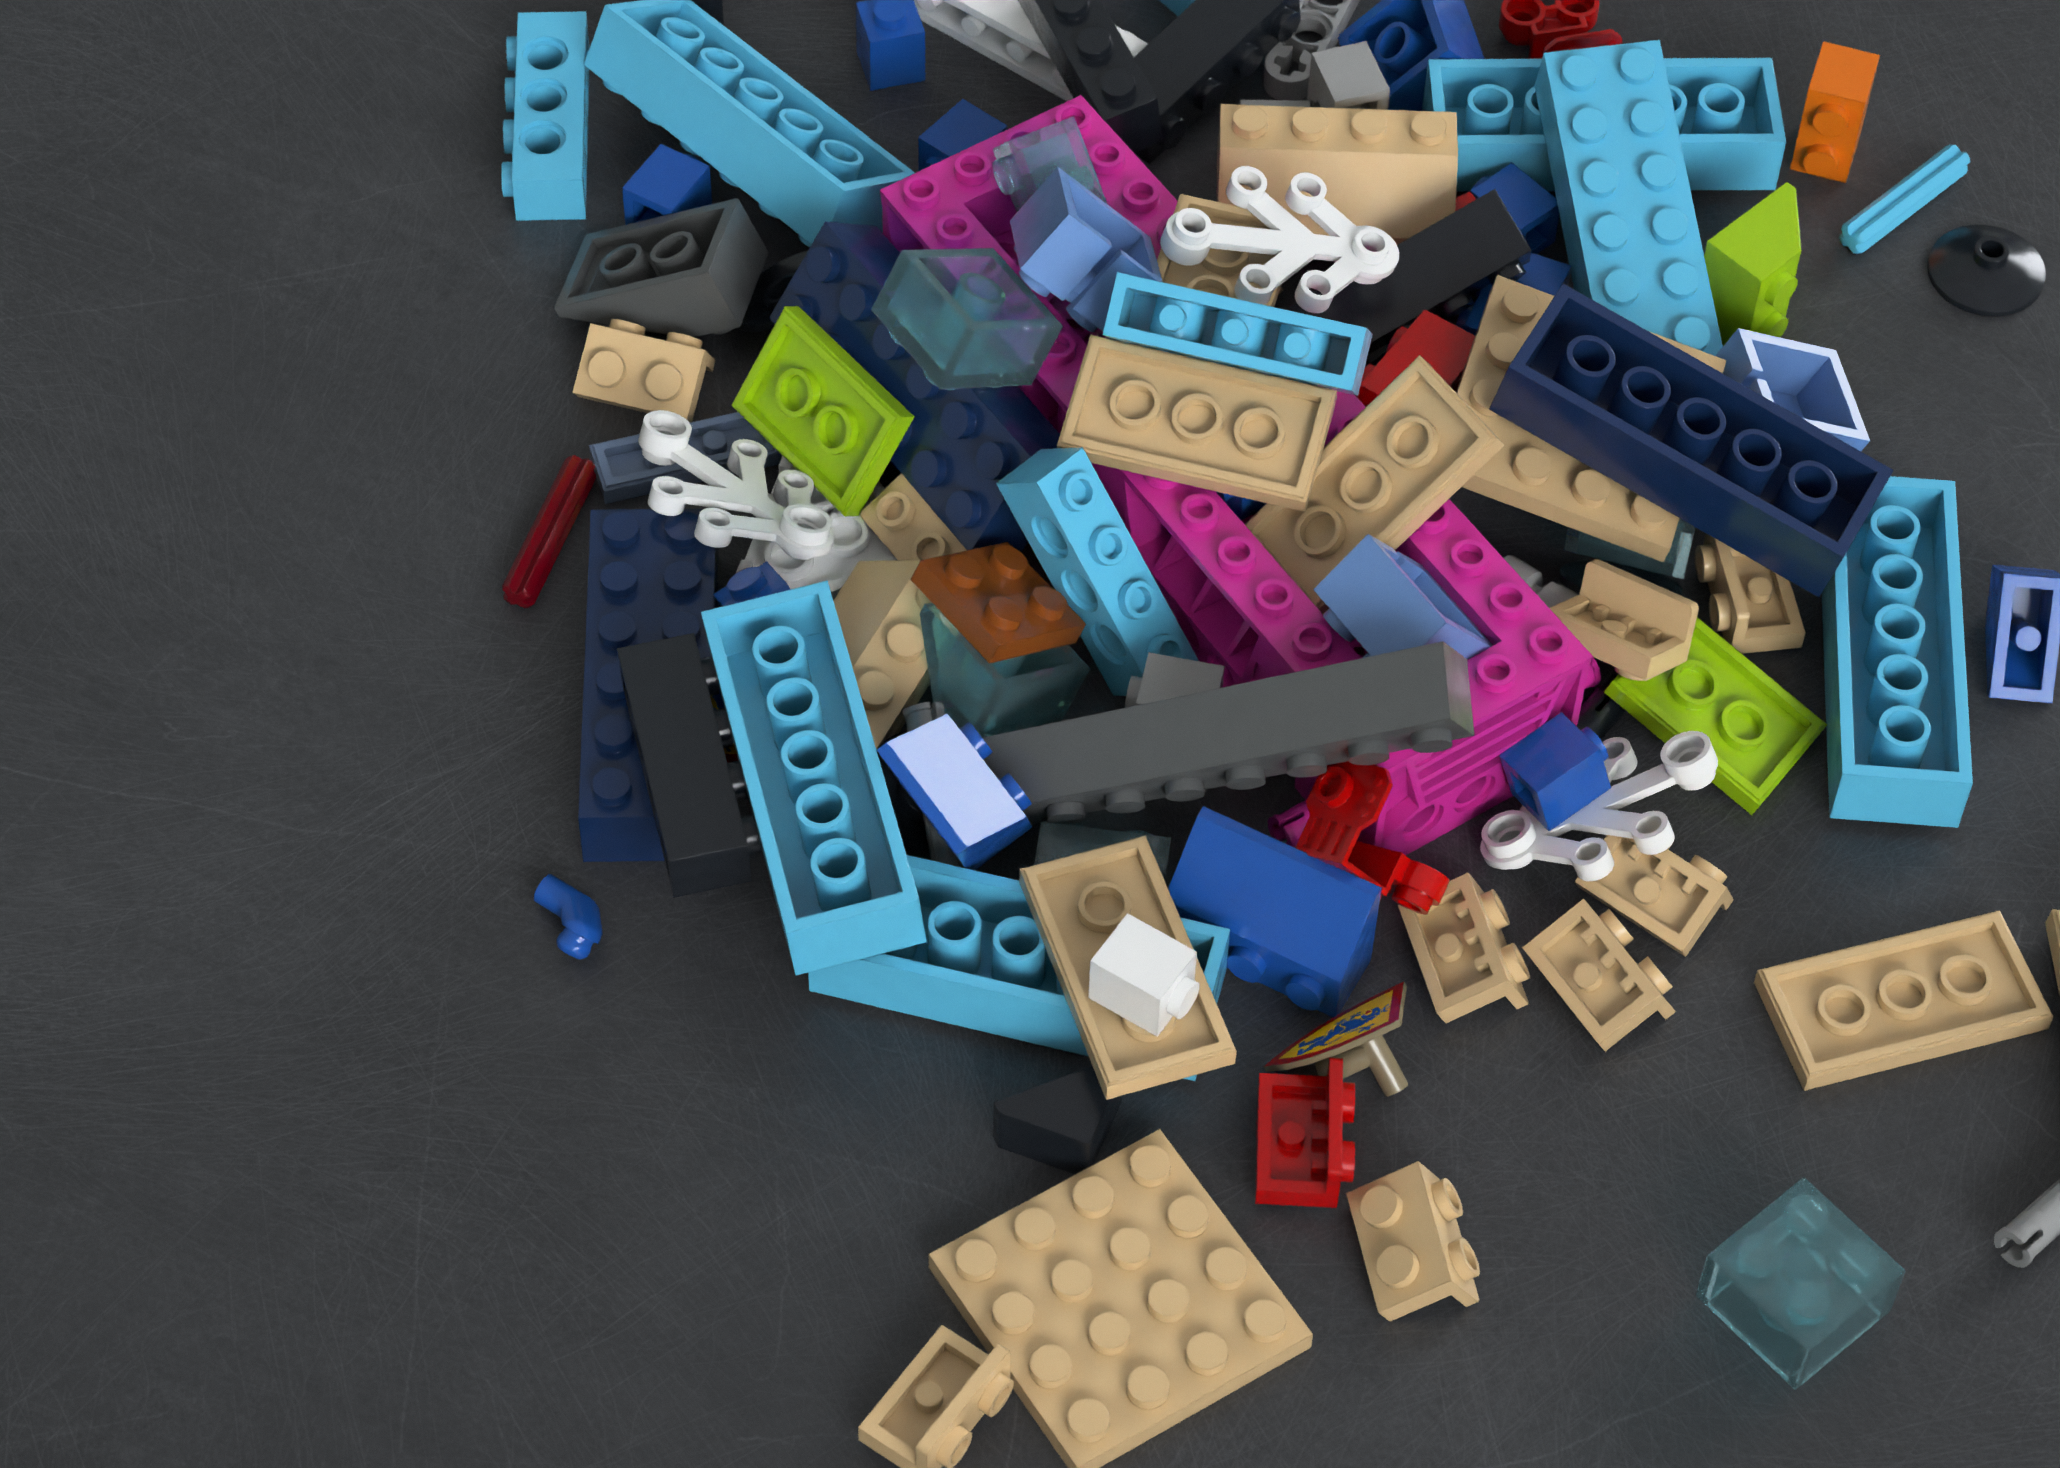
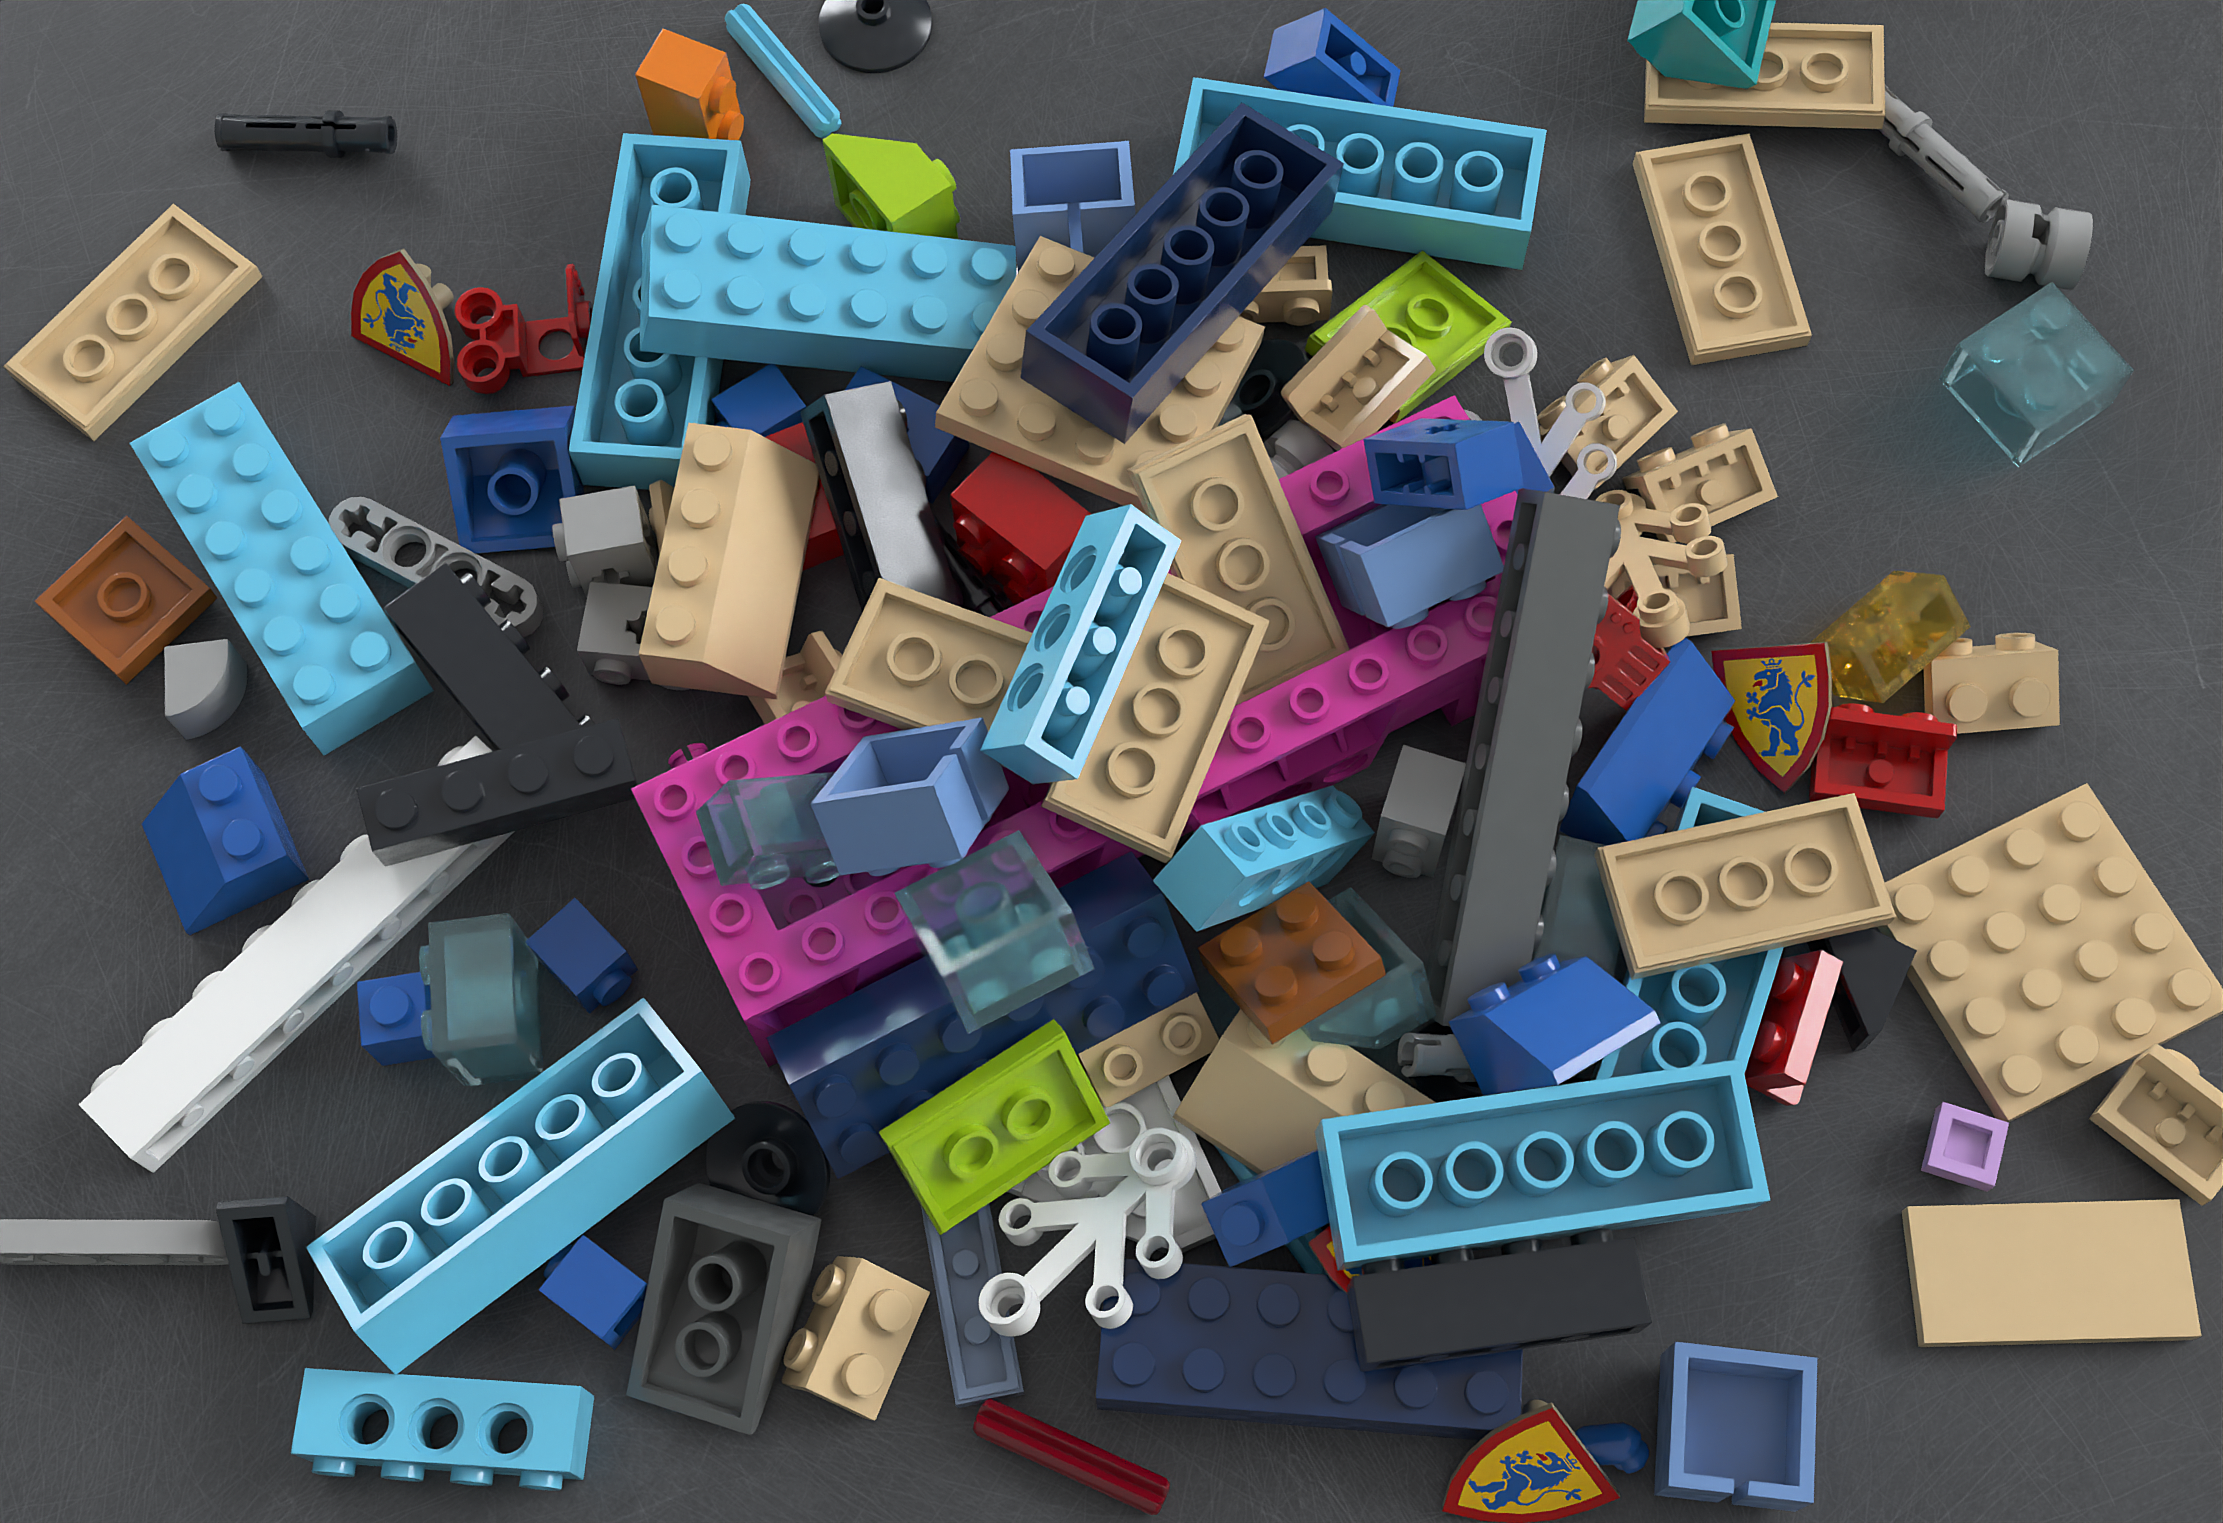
camera: 80 degrees left, 15 degrees up
(548, 844) = (1528, 1472): none -> shield
(596, 1001) = (1736, 1426): none -> medium blue piece
(776, 1300) = (2050, 1273): none -> tan tile
(896, 1215) = (1965, 1146): none -> lavender plate
(904, 74) = (482, 1000): none -> clear light blue brick
(994, 1050) = (1792, 1025): none -> red bracket
(1144, 975) = (1798, 859): white brick -> none
(1359, 252) = (918, 586): white plant -> none
(1443, 1129) = (1892, 635): none -> clear yellow brick
(1483, 601) = (1444, 463): none -> blue brick
(1538, 897) = (1660, 611): none -> tan plant
(1970, 1286) = (2038, 244): none -> light grey wheel

